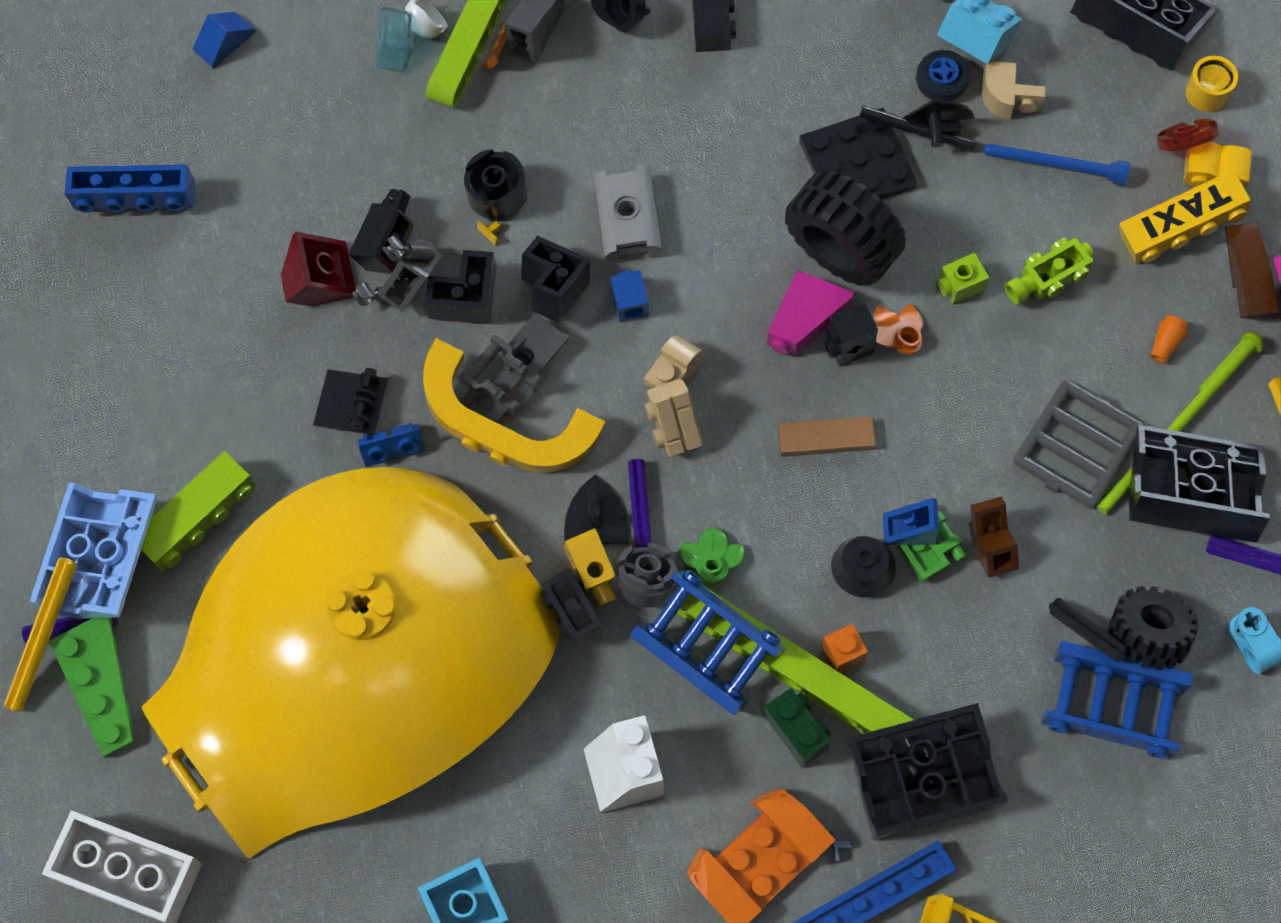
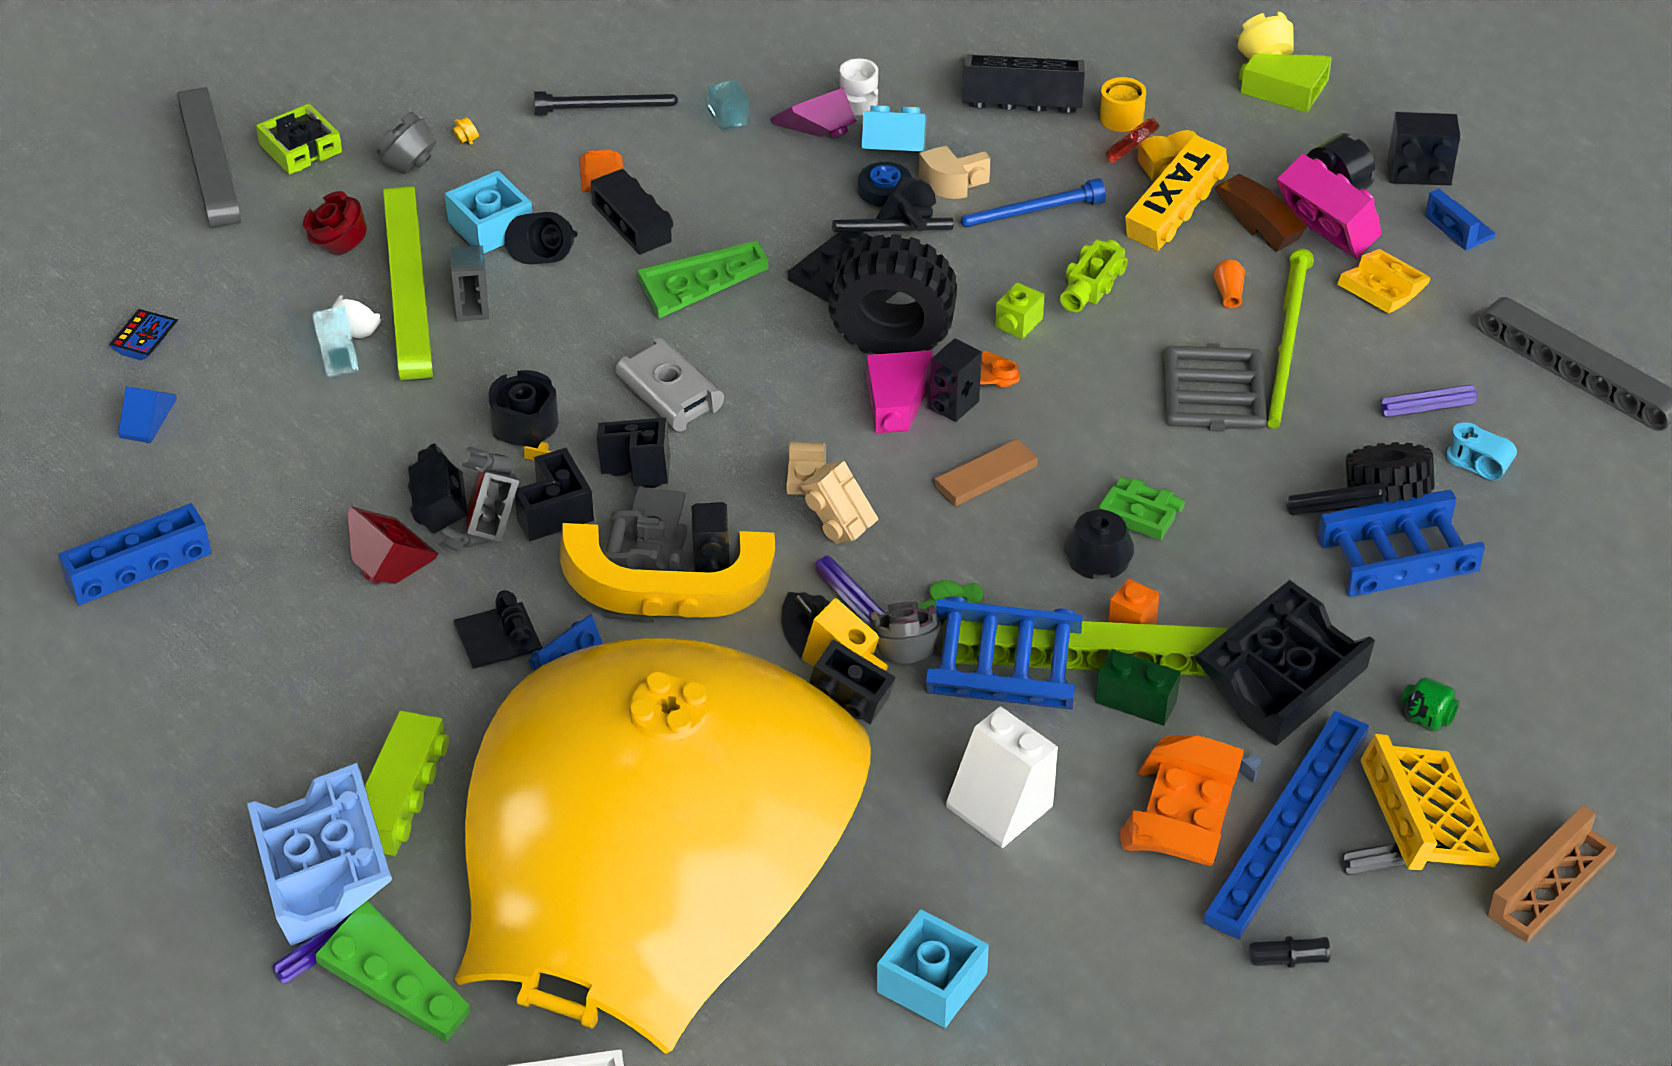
camera: 35 degrees left, 25 degrees down
(40, 634) = (305, 949): yellow axle -> none
(492, 56) = (443, 309): orange piece -> none
(550, 405) = (710, 537): none -> black brick
(629, 295) = (719, 441): blue brick -> none
(721, 105) = (697, 277): none -> bright green wing
(912, 524) = (1125, 484): blue slope -> none
(991, 537) = (1196, 478): reddish brown brick -> none
(1024, 875) = (1430, 704): none -> green head
(1198, 484) = (1342, 367): black piece -> none

